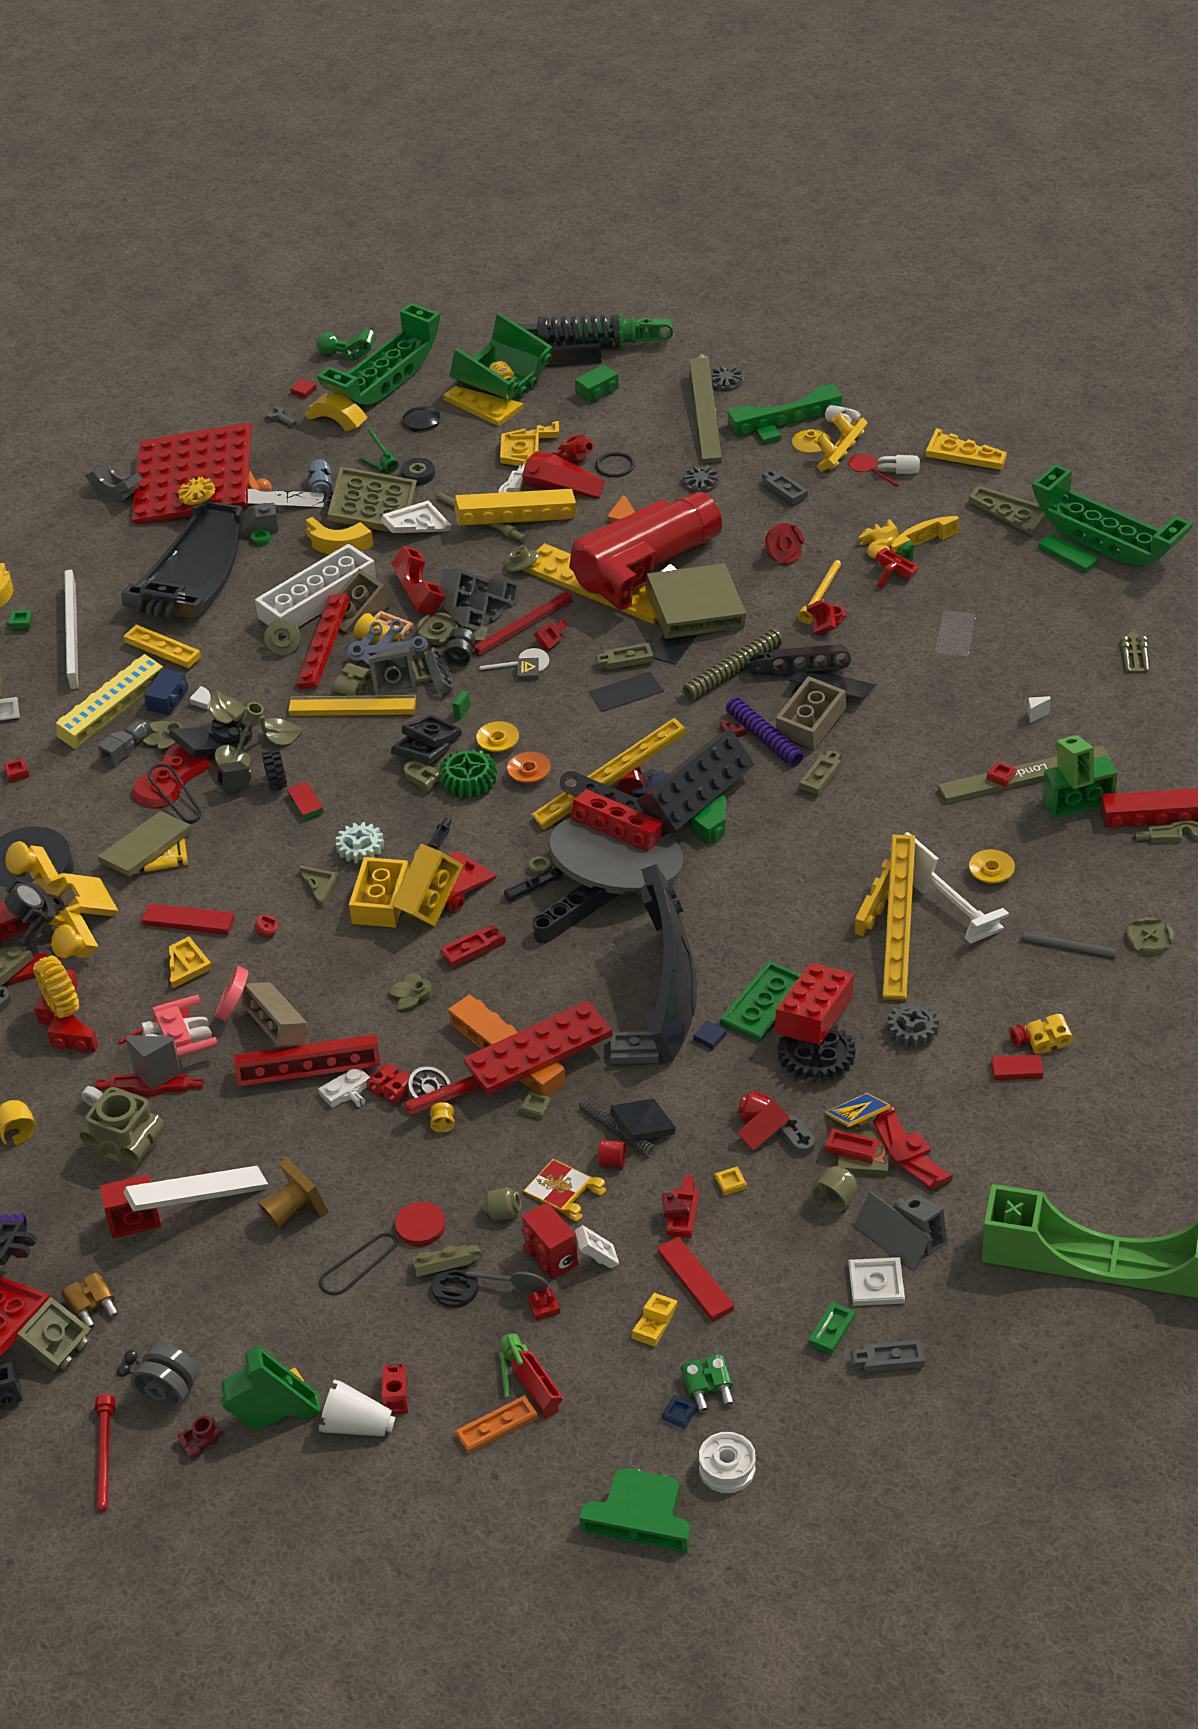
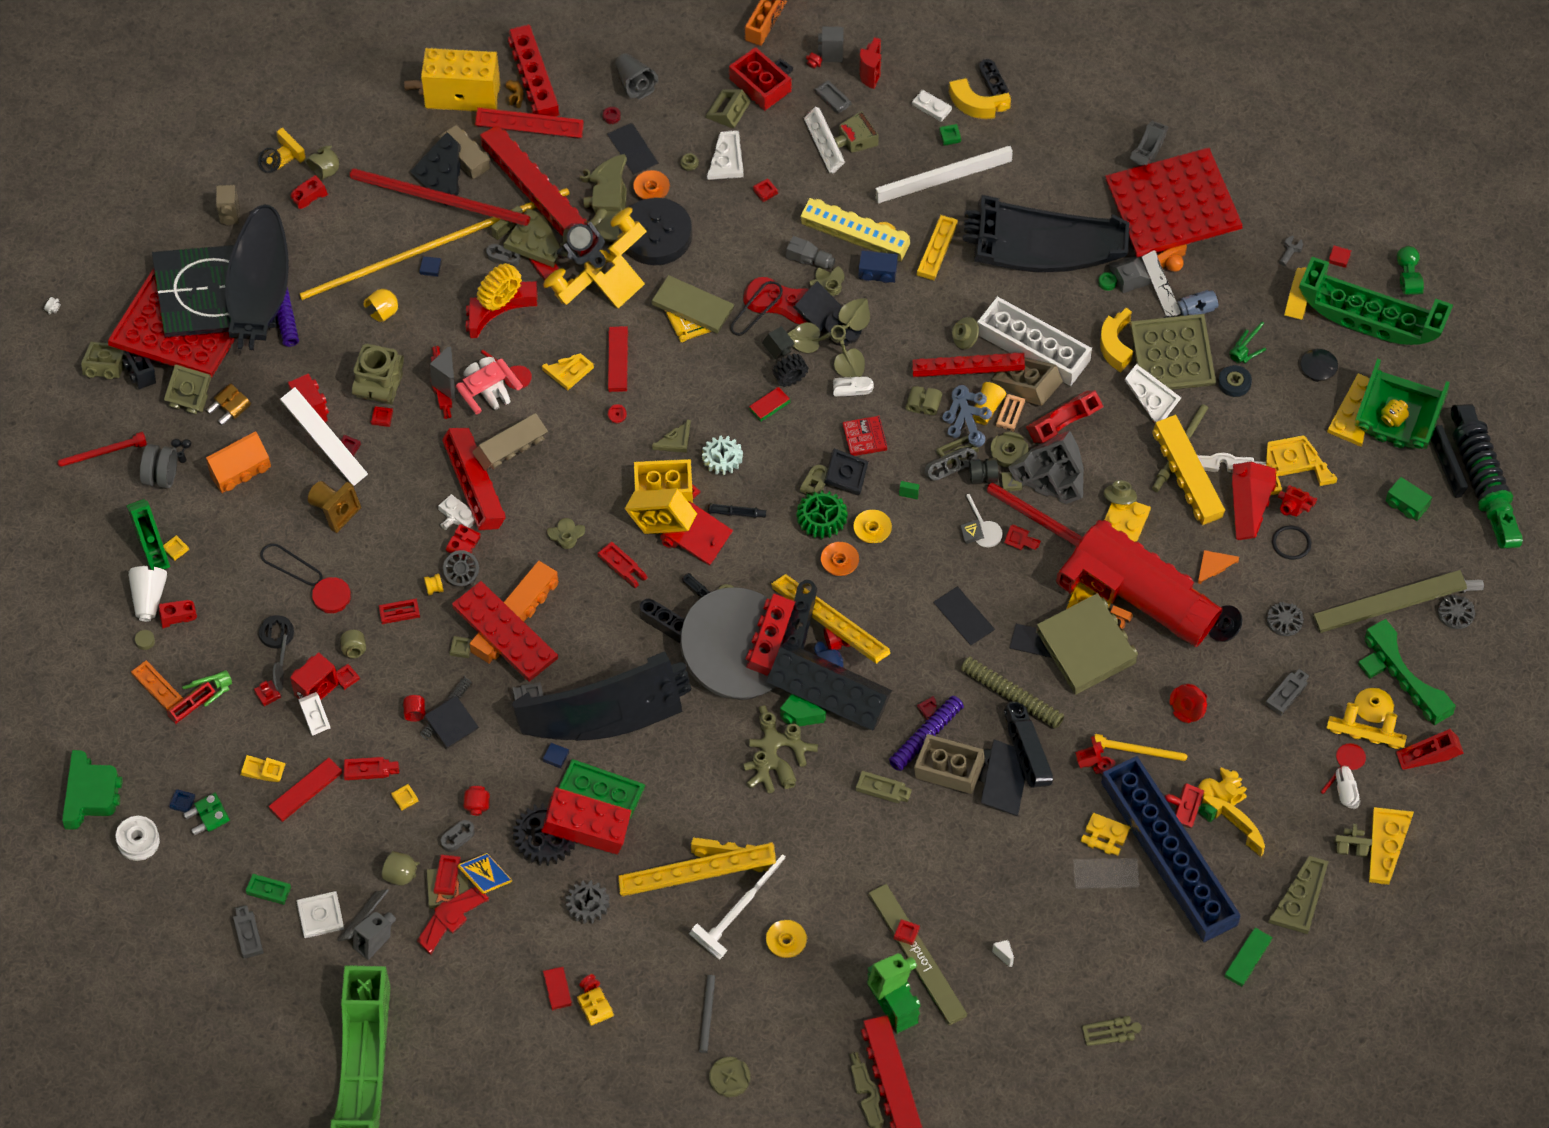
camera: 75 degrees right, 15 degrees up
(91, 1095) = (417, 349): white tile -> none
(175, 1146) = (382, 416): none -> red tile
(194, 1292) = (238, 462): none -> orange slope
(196, 490) = (1137, 211): yellow wheel -> none
(201, 698) = (880, 295): white tile -> none
(203, 1433) = (118, 503): dark red plate -> none
(231, 993) = (532, 408): coral piece -> none
(311, 730) = (852, 386): none -> white arm
(352, 705) = (896, 409): yellow tile -> none
(377, 732) = (865, 436): none -> red tile
(392, 671) = (936, 426): dark grey slope -> none
(421, 1431) = (144, 639): none -> olive tile
(431, 731) = (869, 475): black tile -> none
(441, 1095) = (446, 572): red axle -> none
(446, 1259) = (297, 618): olive hinge -> none
(465, 1174) = (399, 614): none -> red tile
(562, 1186) = (380, 680): flag -> none
(625, 656) = (1004, 604): olive hinge -> none
(673, 1206) = (363, 758): dark red tile -> none
(763, 1125) = (456, 807): red tile -> none
(764, 857) = (768, 759): none -> olive plant
(849, 414) = (1410, 721): white hinge -> none
(873, 408) = (1431, 750): none -> red slope
(907, 625) = (1107, 829): none -> yellow plate
(943, 578) = (1170, 849): none -> dark blue brick
(961, 470) = (1343, 842): none -> olive hips
(1101, 526) = (1282, 974): green slope -> none

